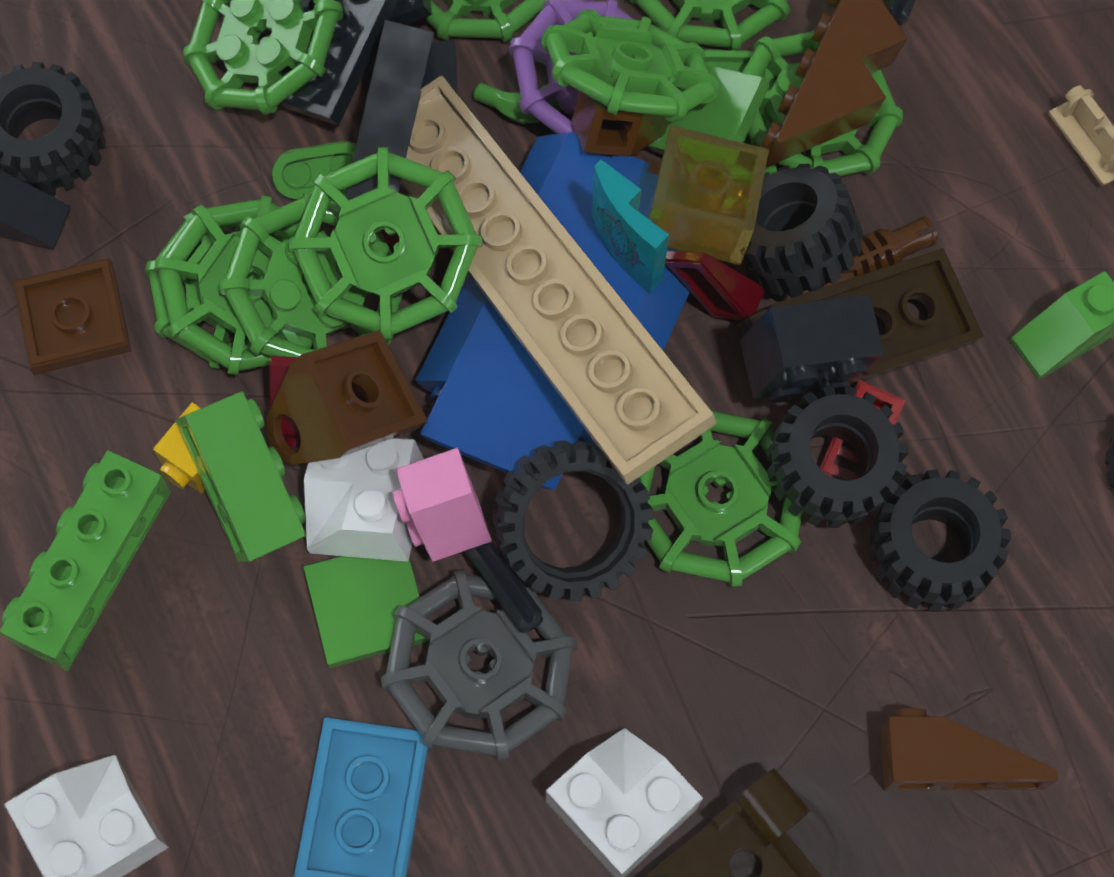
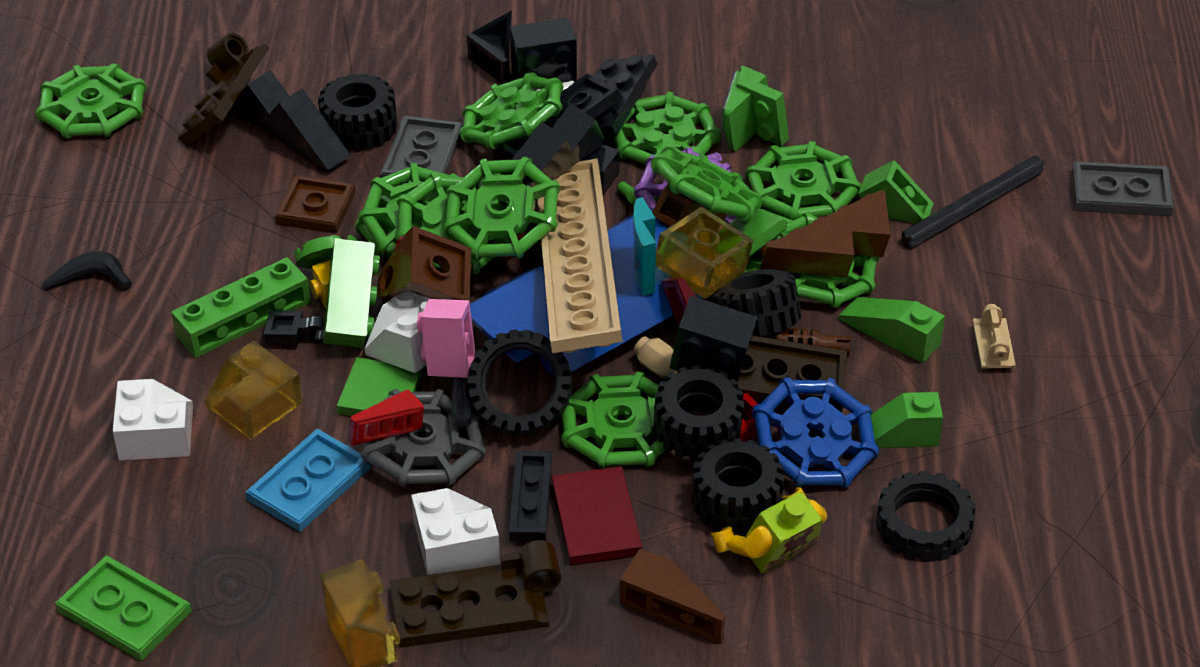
camera: 30 degrees right, 25 degrees down
(157, 412) = (316, 251): none -> bright green tile
(166, 153) = (424, 142): none -> dark grey tile
(174, 561) = (289, 326): none -> black plate
(197, 701) = (254, 390): none -> clear yellow slope
(447, 668) = (386, 419): none -> red slope
(680, 686) = (530, 496): none -> black plate
(709, 368) = (654, 356): none -> tan plant
(777, 669) = (596, 515): none -> dark red tile
(965, 166) = (897, 323): none -> bright green slope
(998, 383) = (825, 418): none -> blue plate
(1040, 590) = (776, 532): none -> torso

